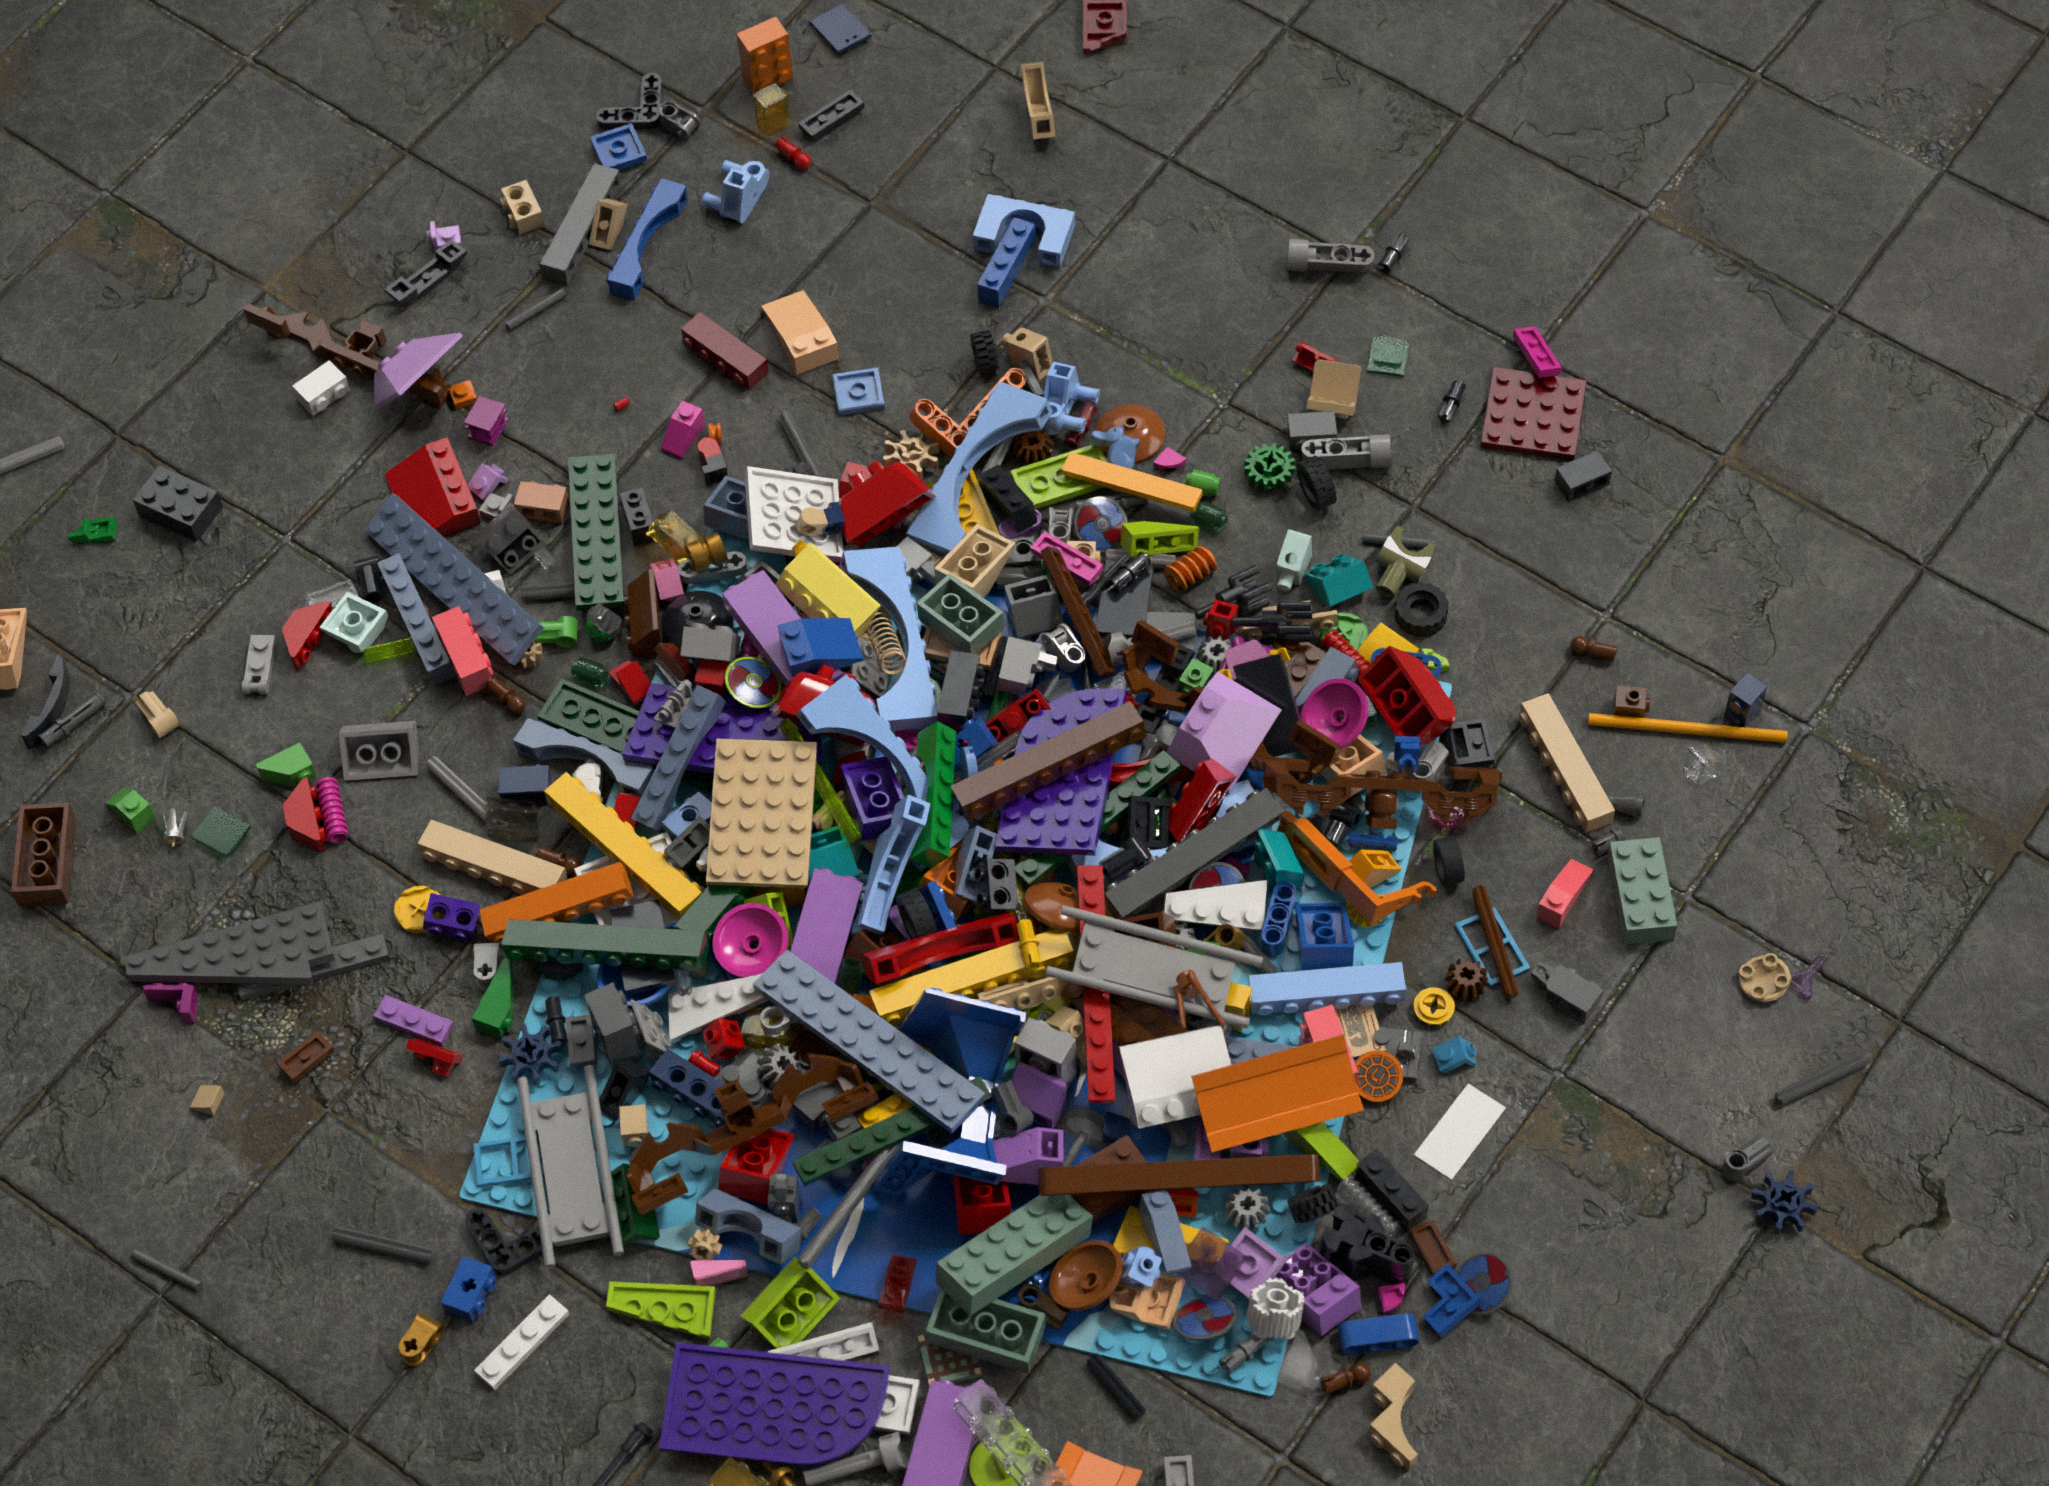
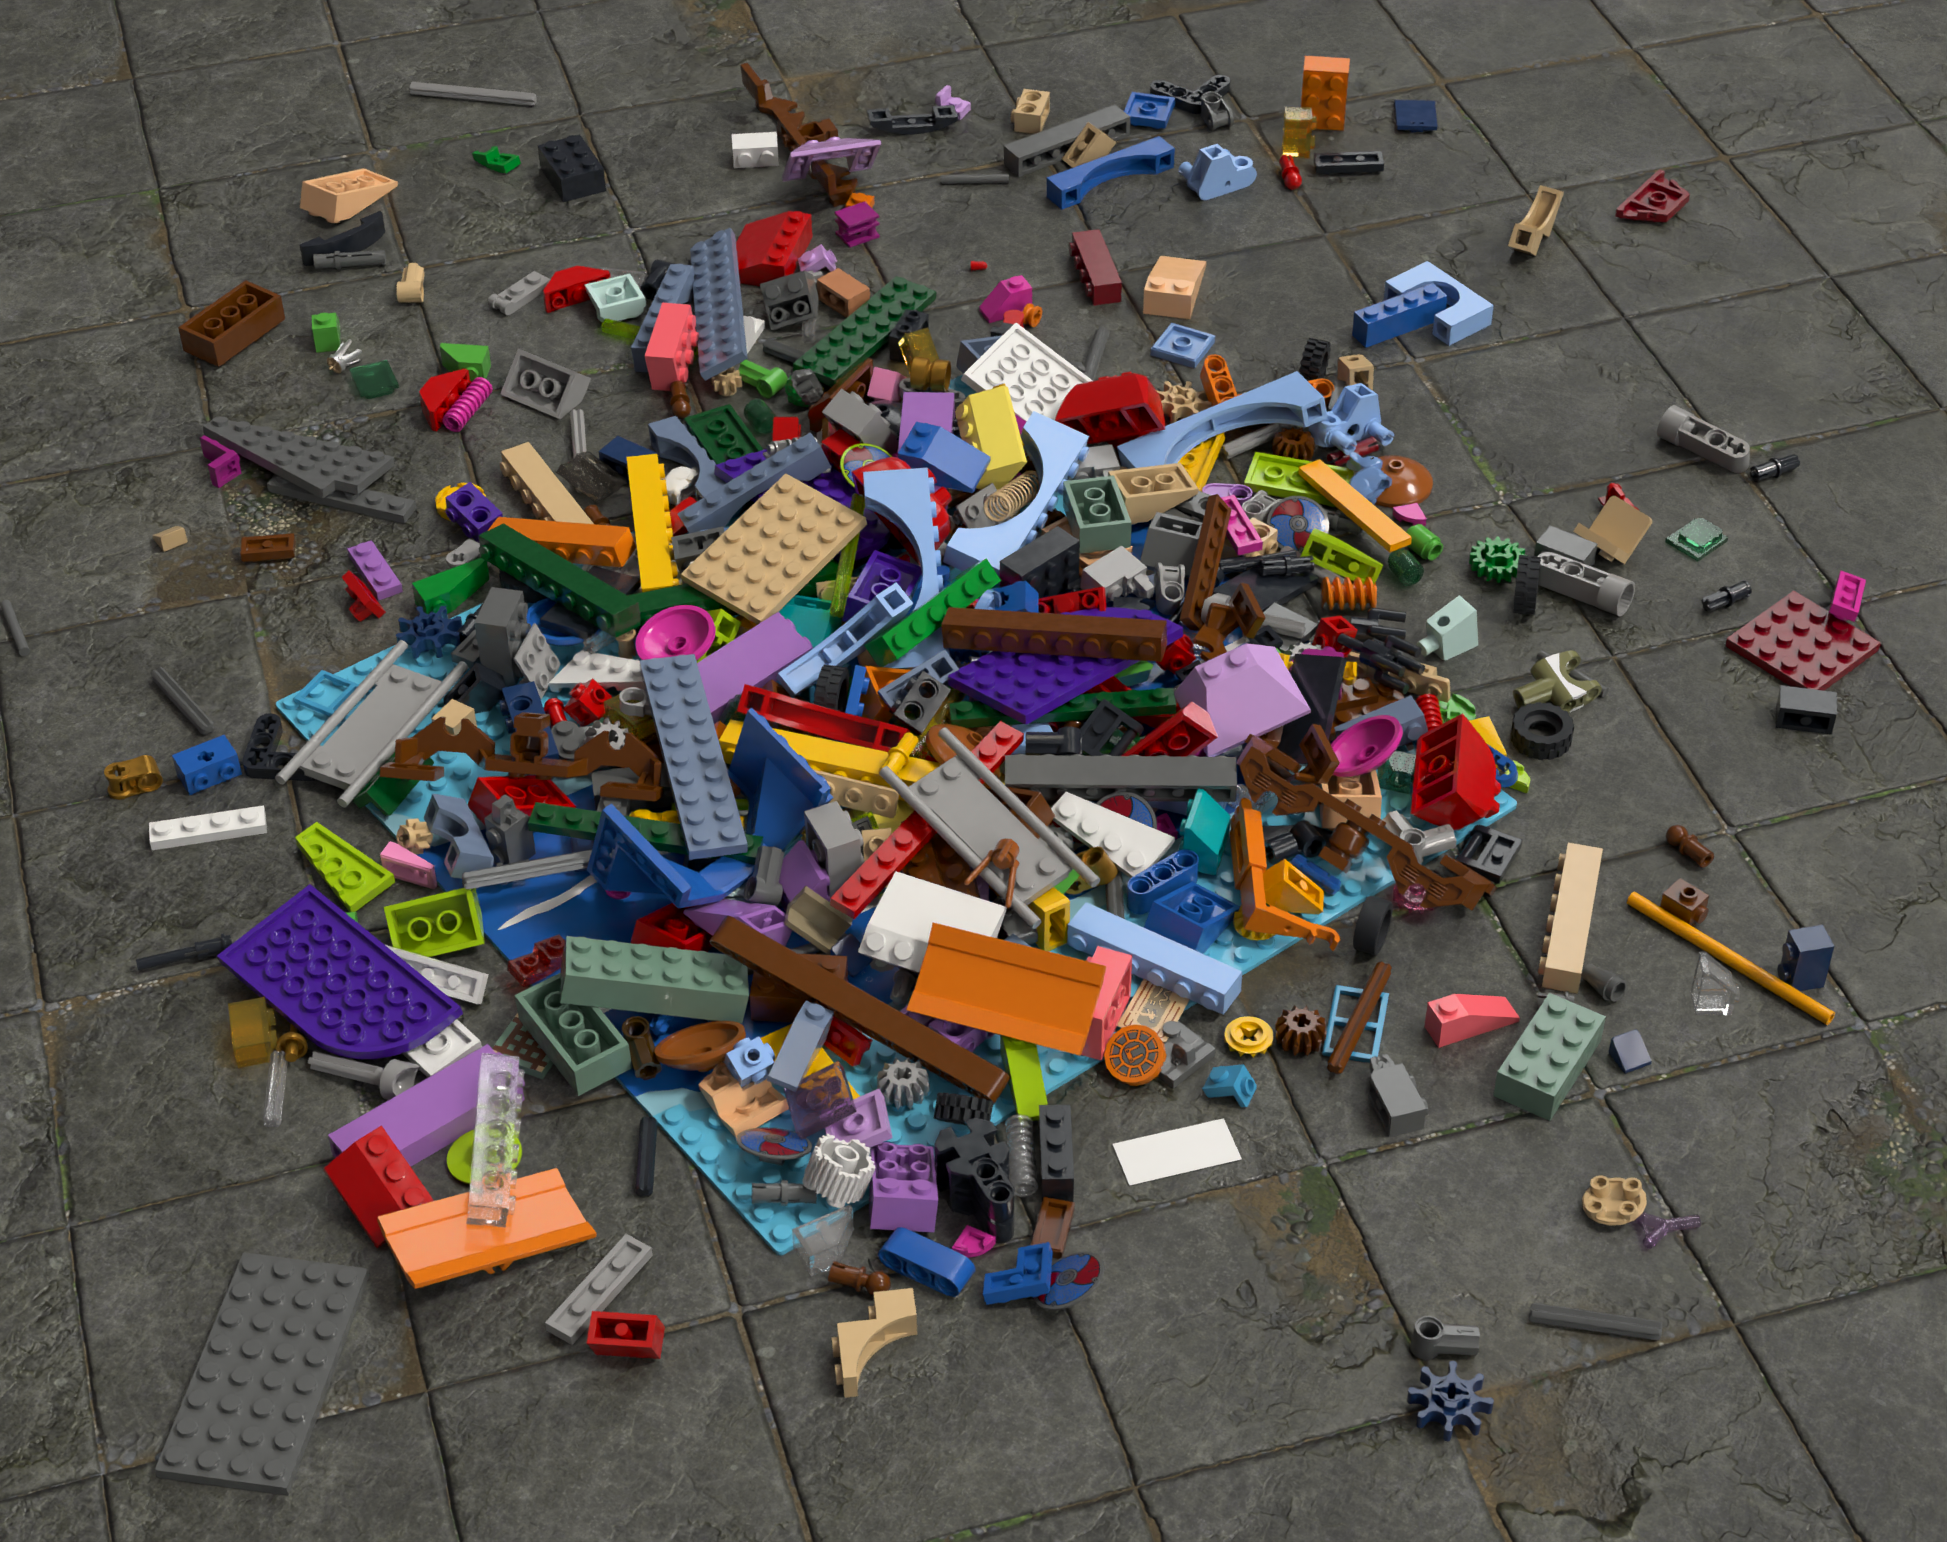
camera: 35 degrees right, 15 degrees down
(821, 521) = (1042, 392): leg -> none
(1007, 498) = (1230, 464): black brick -> none
(1074, 1119) = (816, 920): none -> dark tan panel
(1339, 579) = (1482, 669): teal slope -> none
(1407, 752) = (1408, 811): blue piece -> none
(1685, 851) = (1629, 1051): none -> slope

